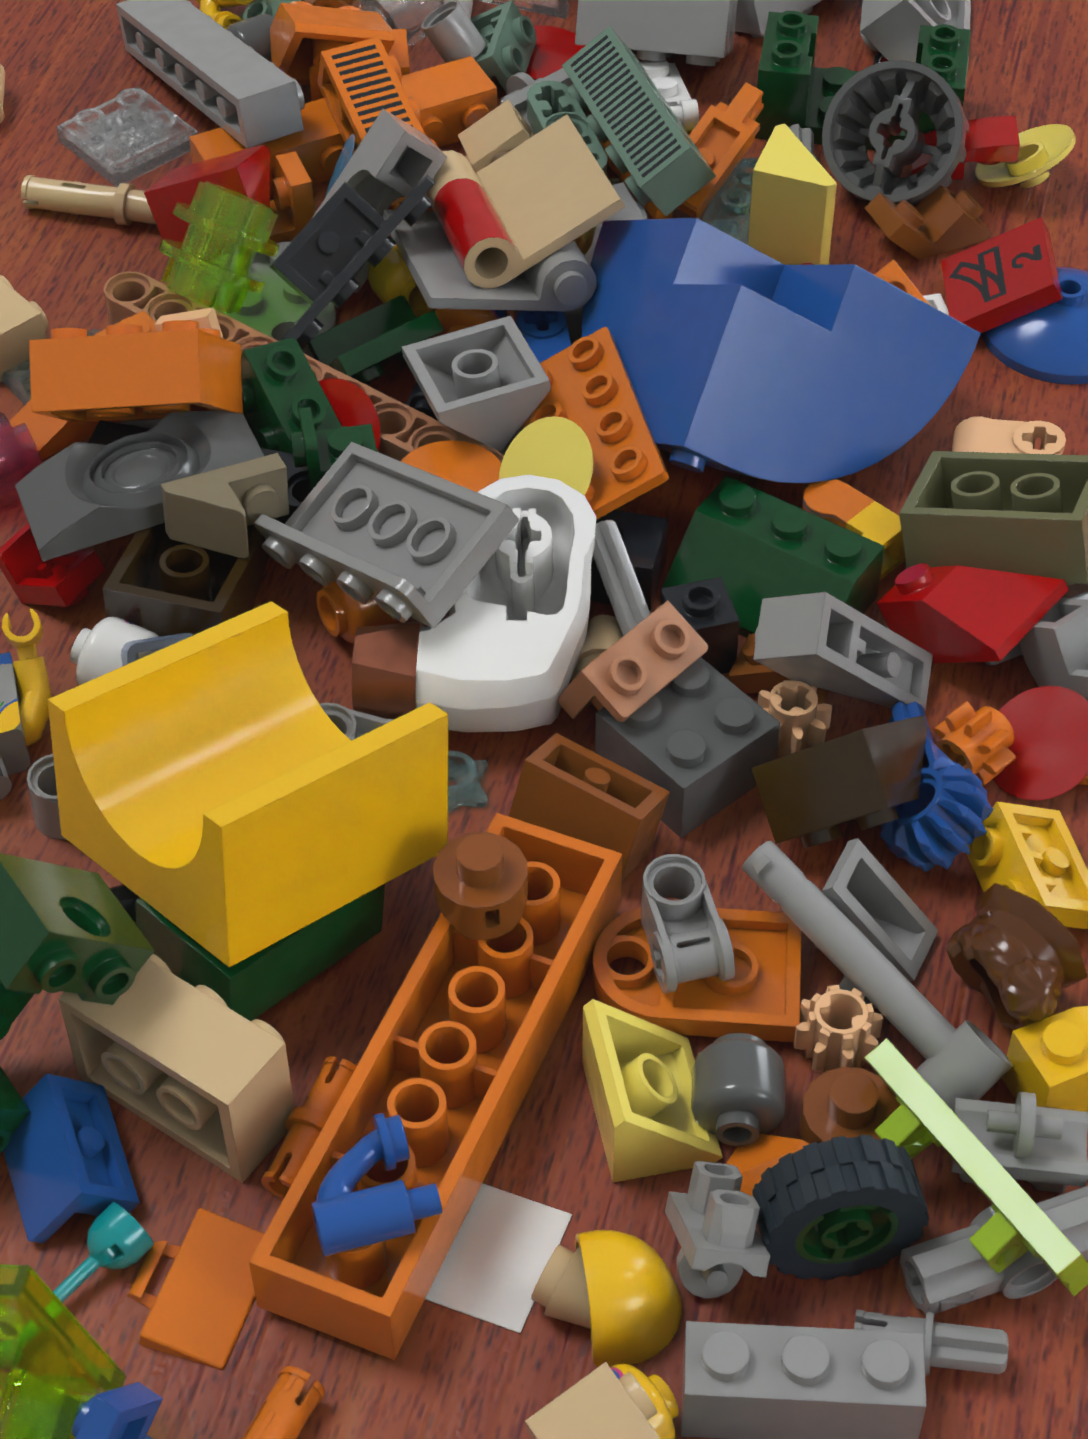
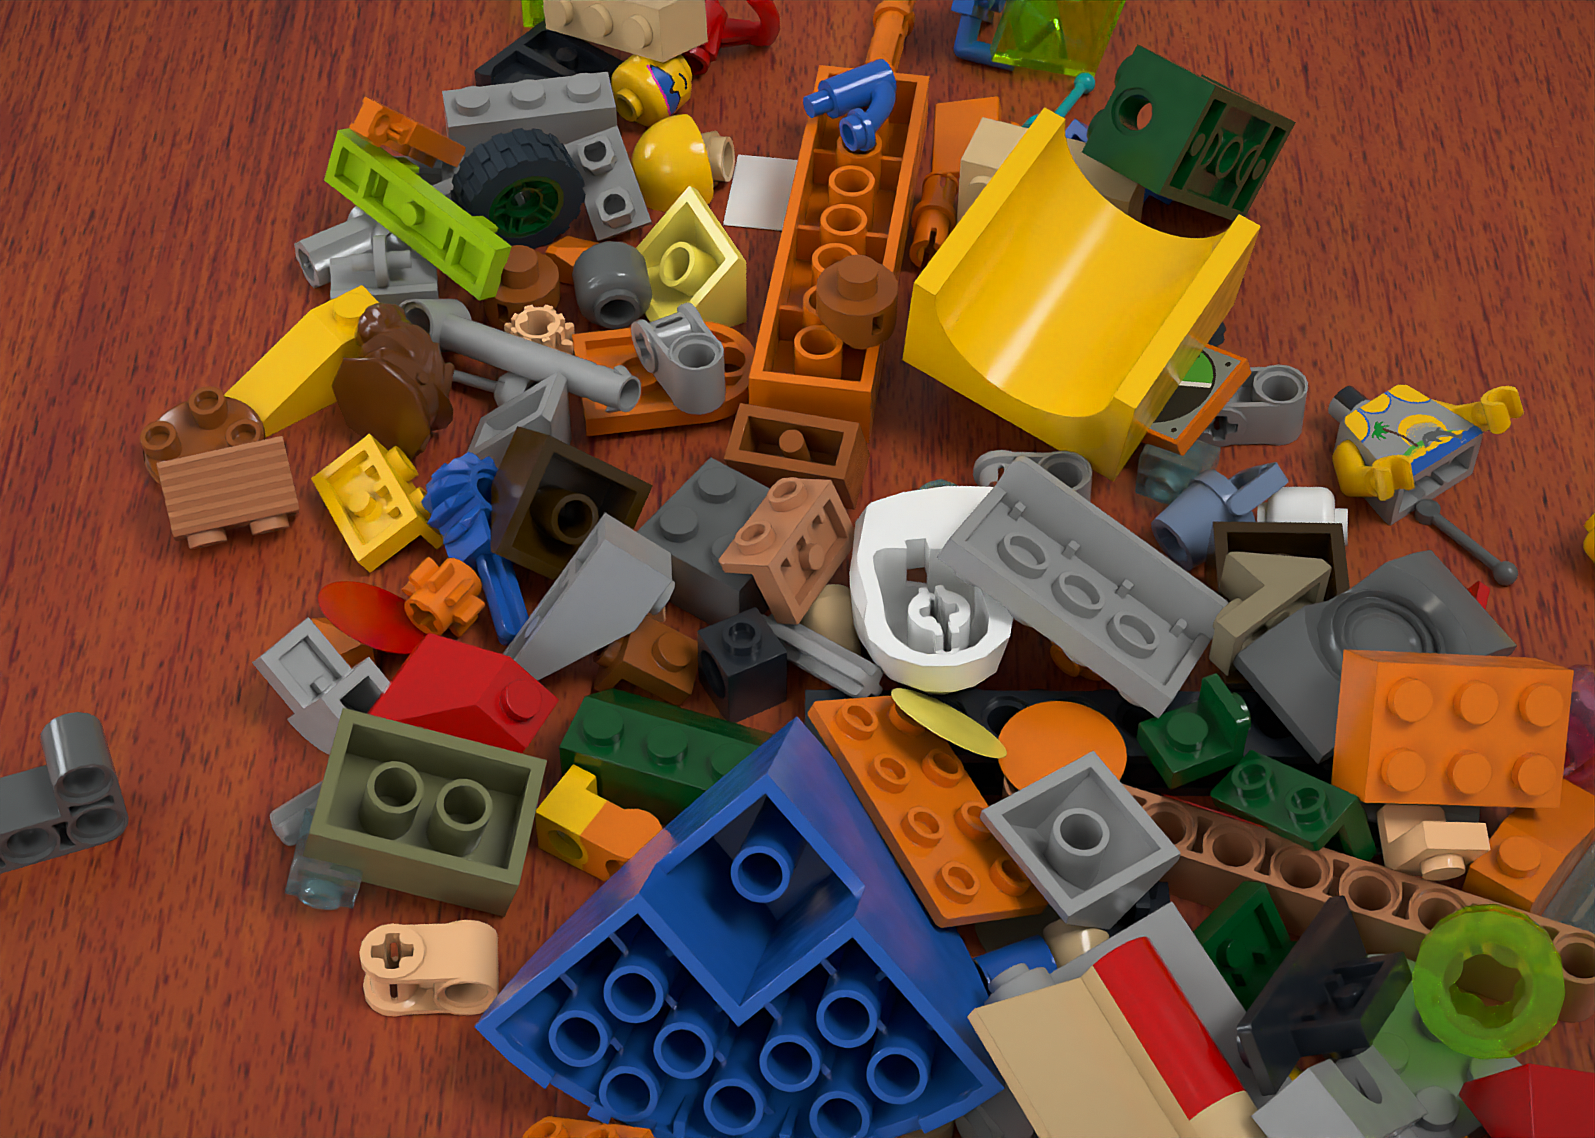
camera: 165 degrees right, 0 degrees up
(985, 1256) = (404, 135): none -> orange hinge

